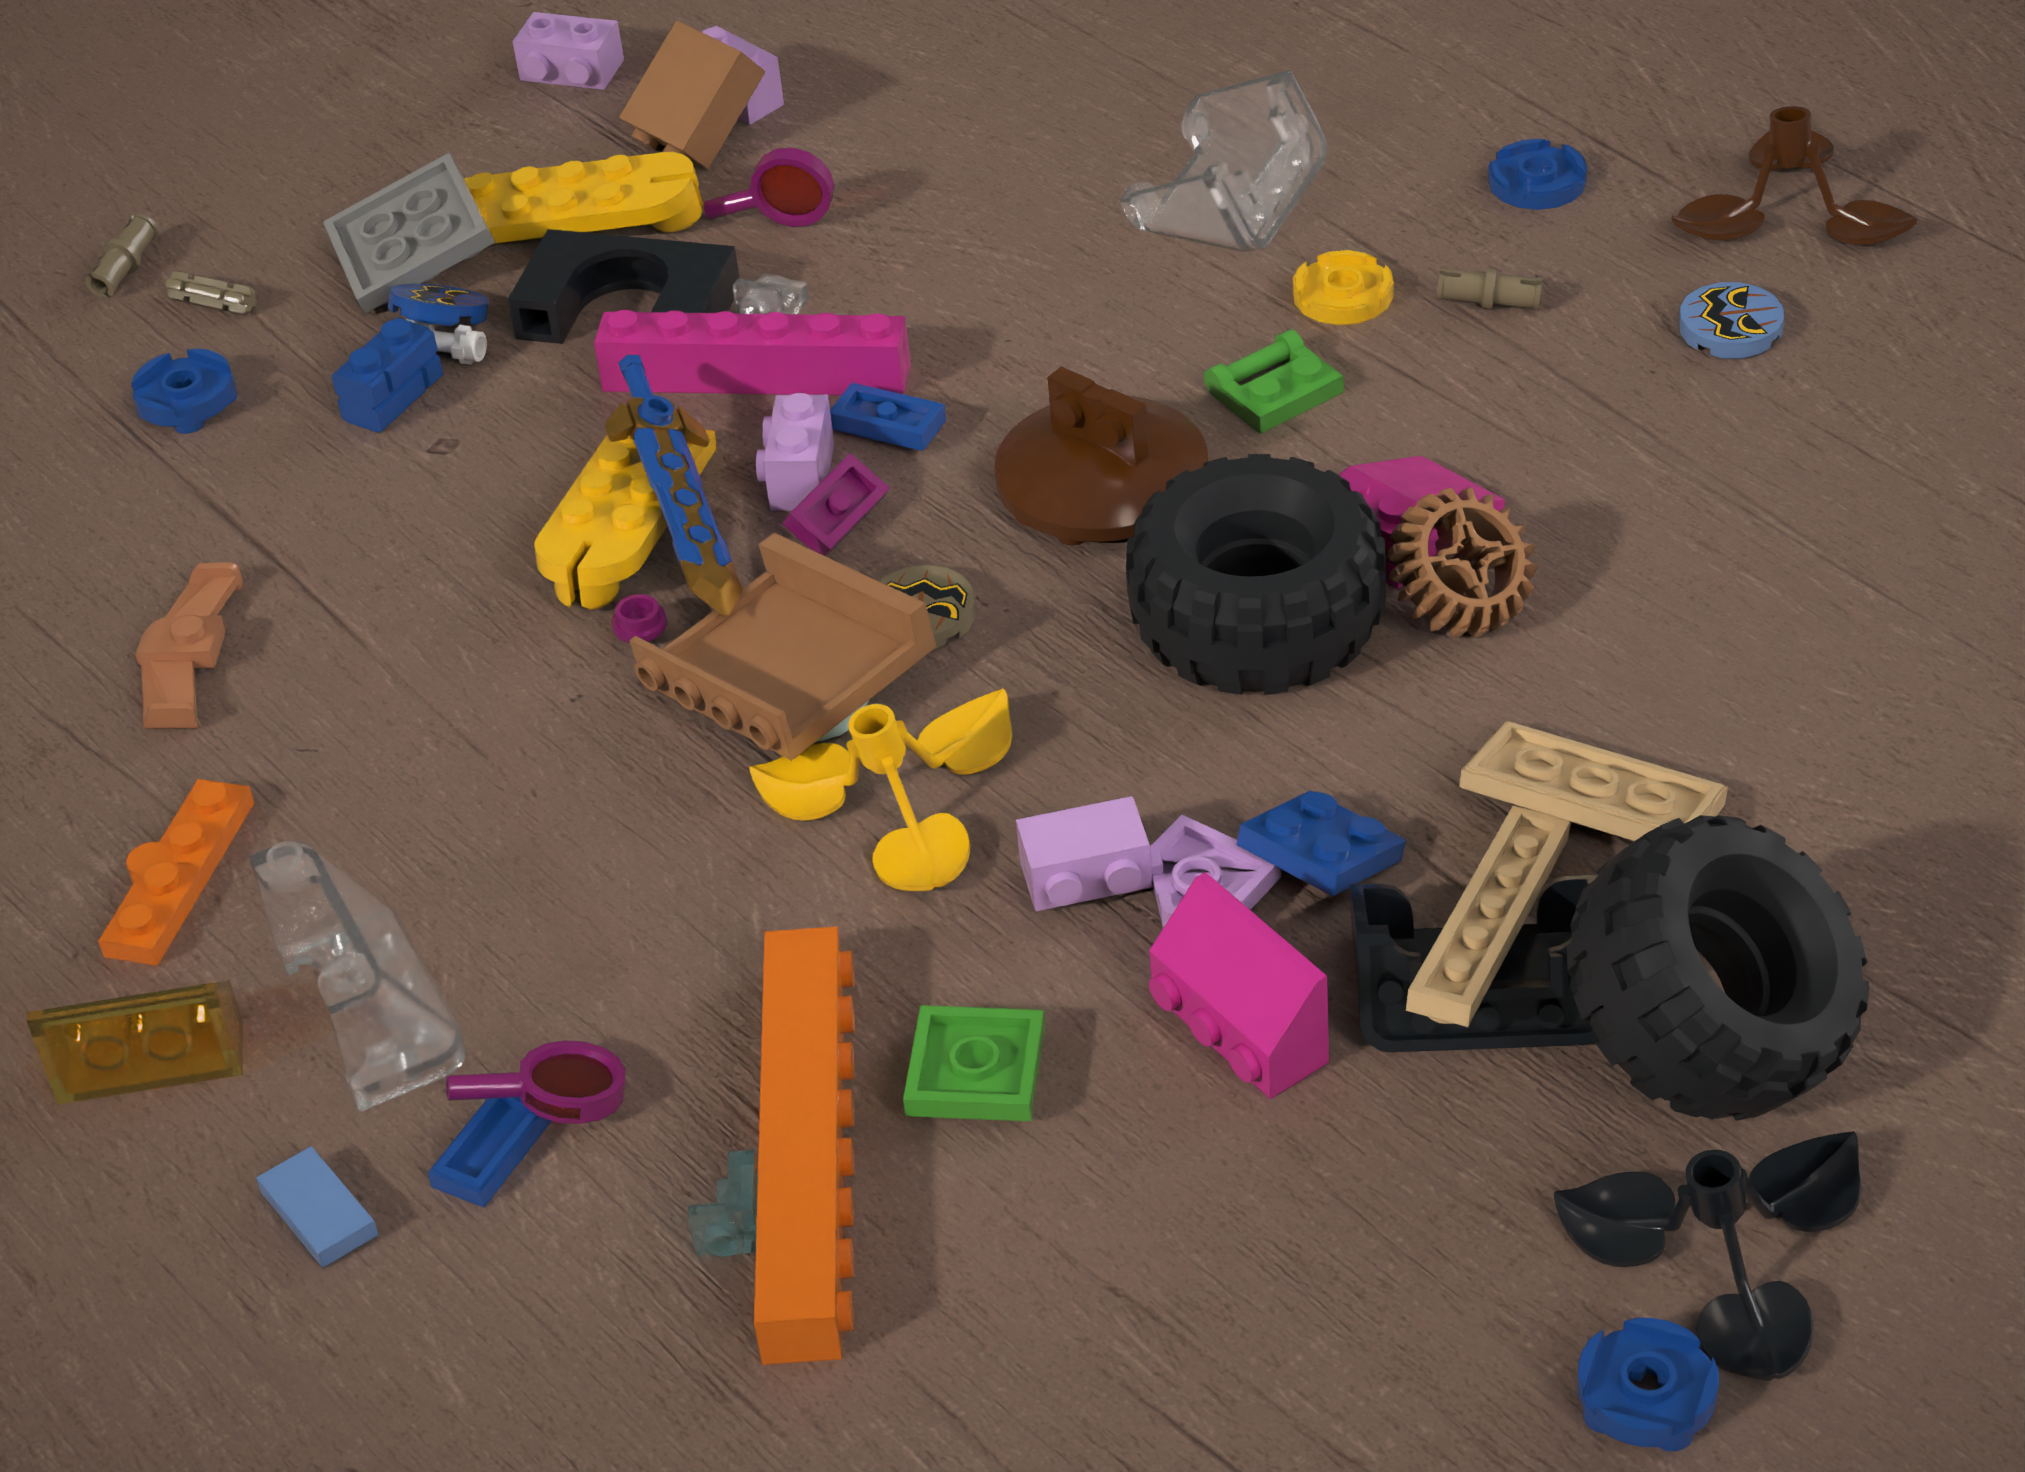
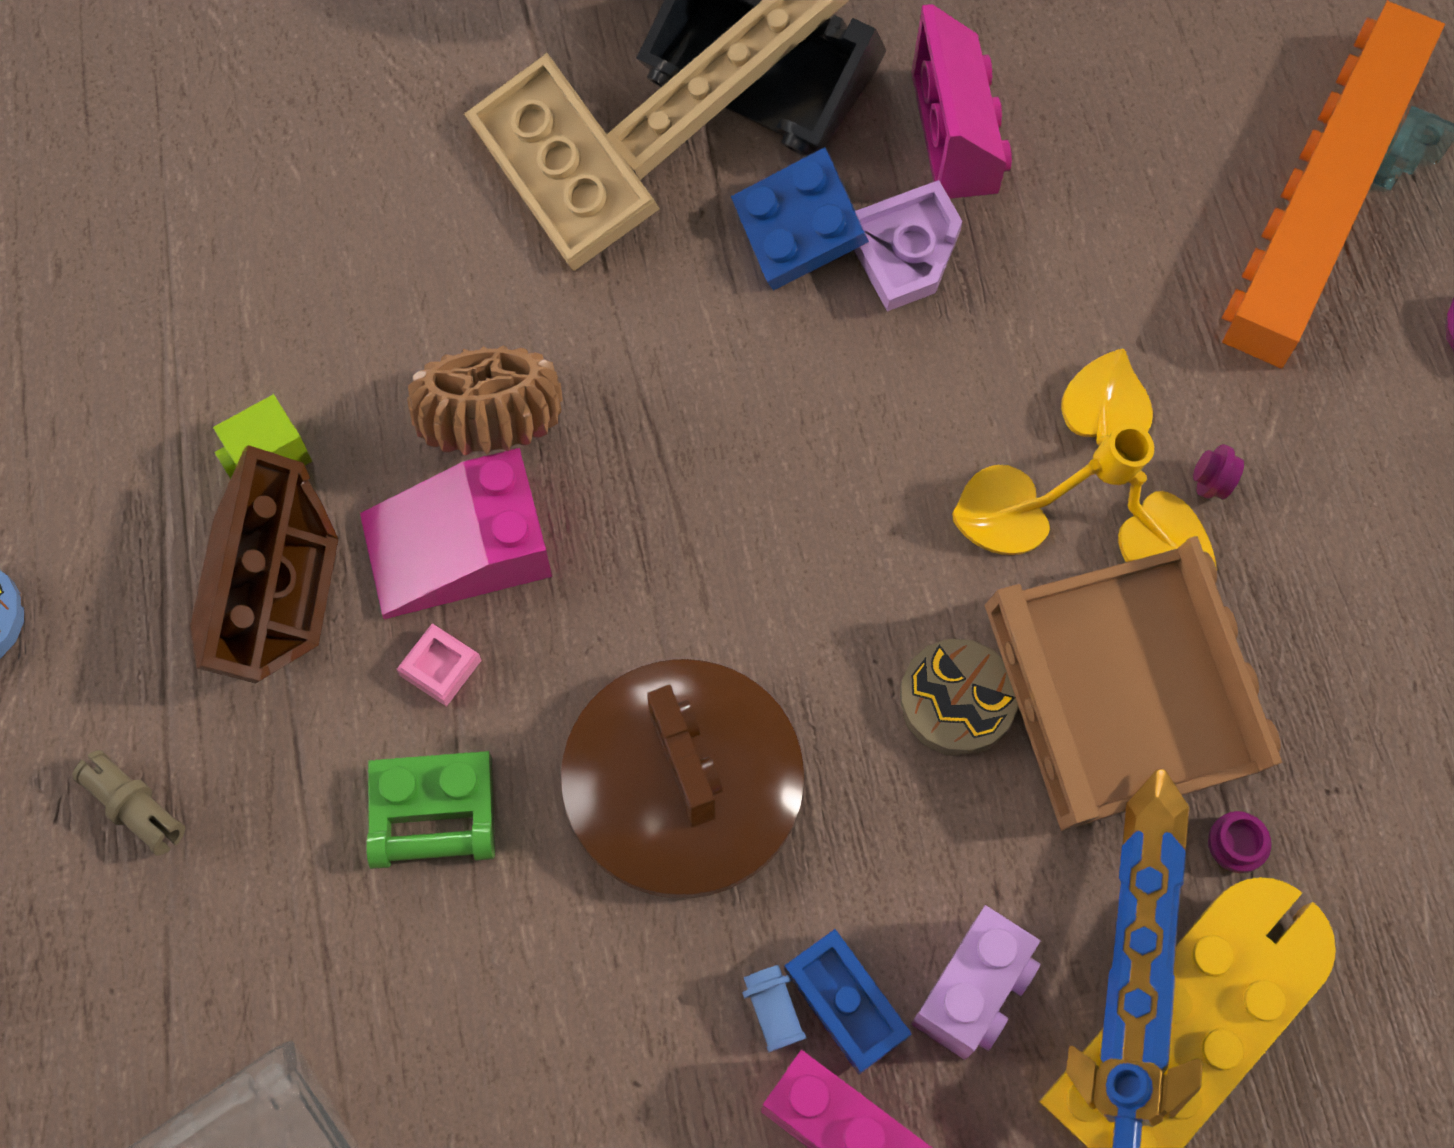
camera: 155 degrees left, 25 degrees up
(788, 834) = (1218, 472): none -> magenta plate
(836, 505) = (974, 877): magenta plate -> none
(929, 387) = (774, 1007): none -> medium blue pin
(975, 1063) = (1173, 179): bright green plate -> none
(1084, 853) = (992, 297): lavender brick -> none
(1256, 574) = (654, 414): black tyre -> none
(1343, 288) = (252, 922): yellow tile -> none
(1347, 447) = (439, 664): none -> bright pink tile
(1517, 406) = (263, 571): none -> reddish brown wedge
(1622, 486) = (263, 427): none -> lime brick

